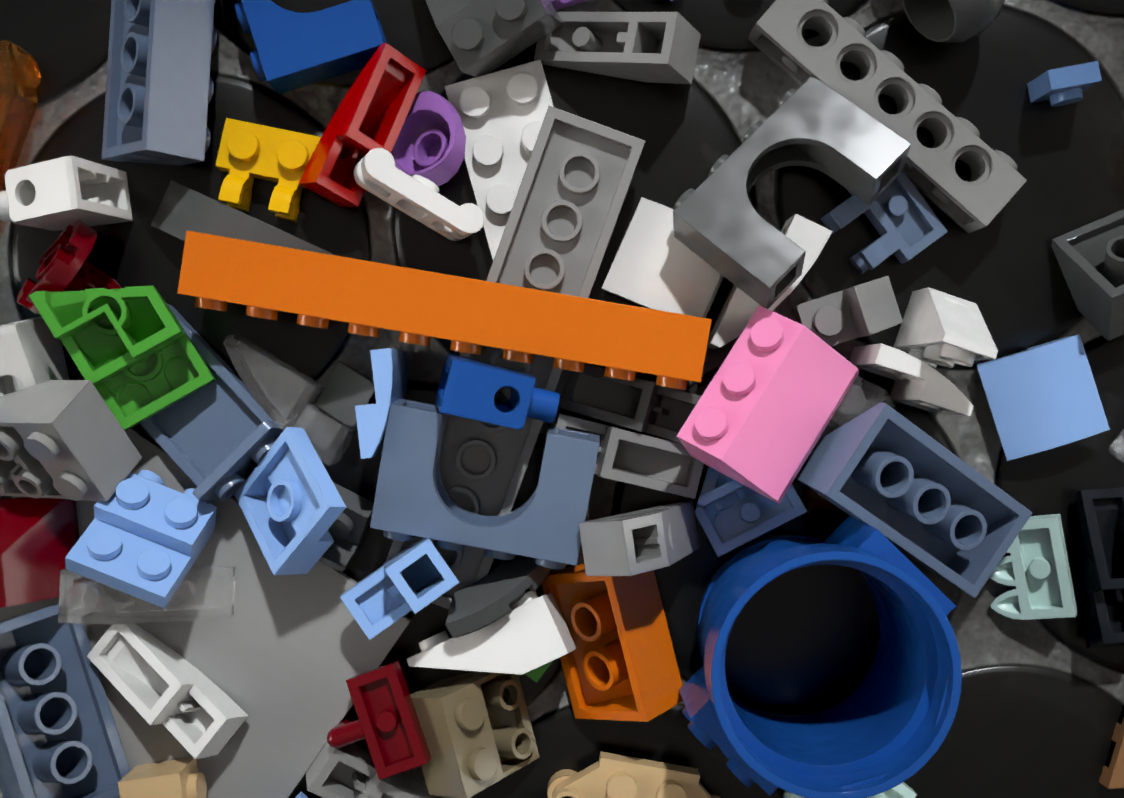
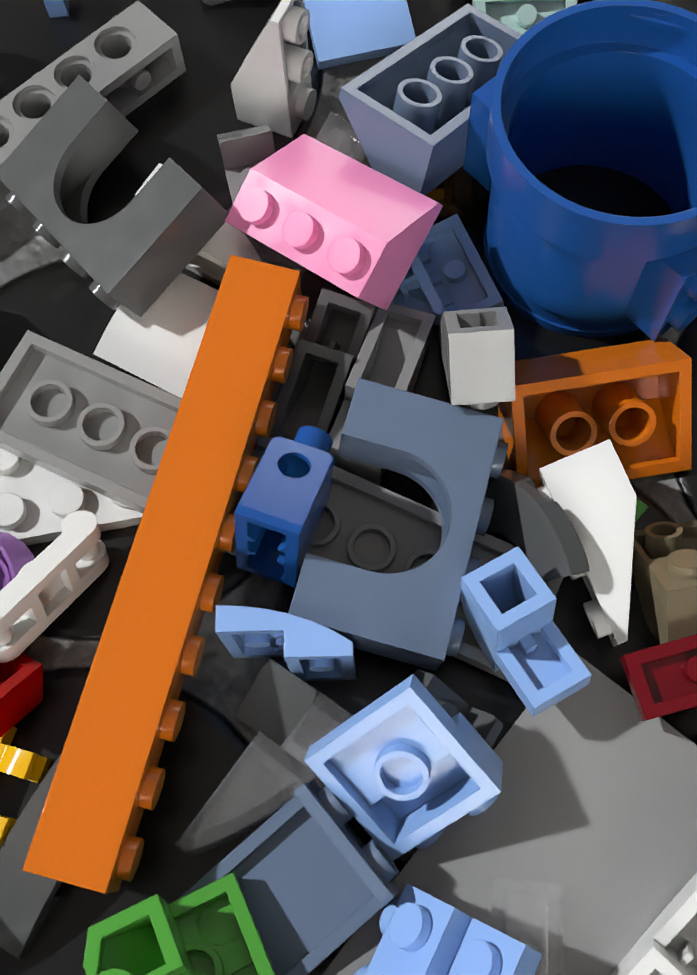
camera: 75 degrees left, 20 degrees down
(899, 217) = (160, 116): sand blue plate -> none
(914, 382) = (317, 86): white slope -> none

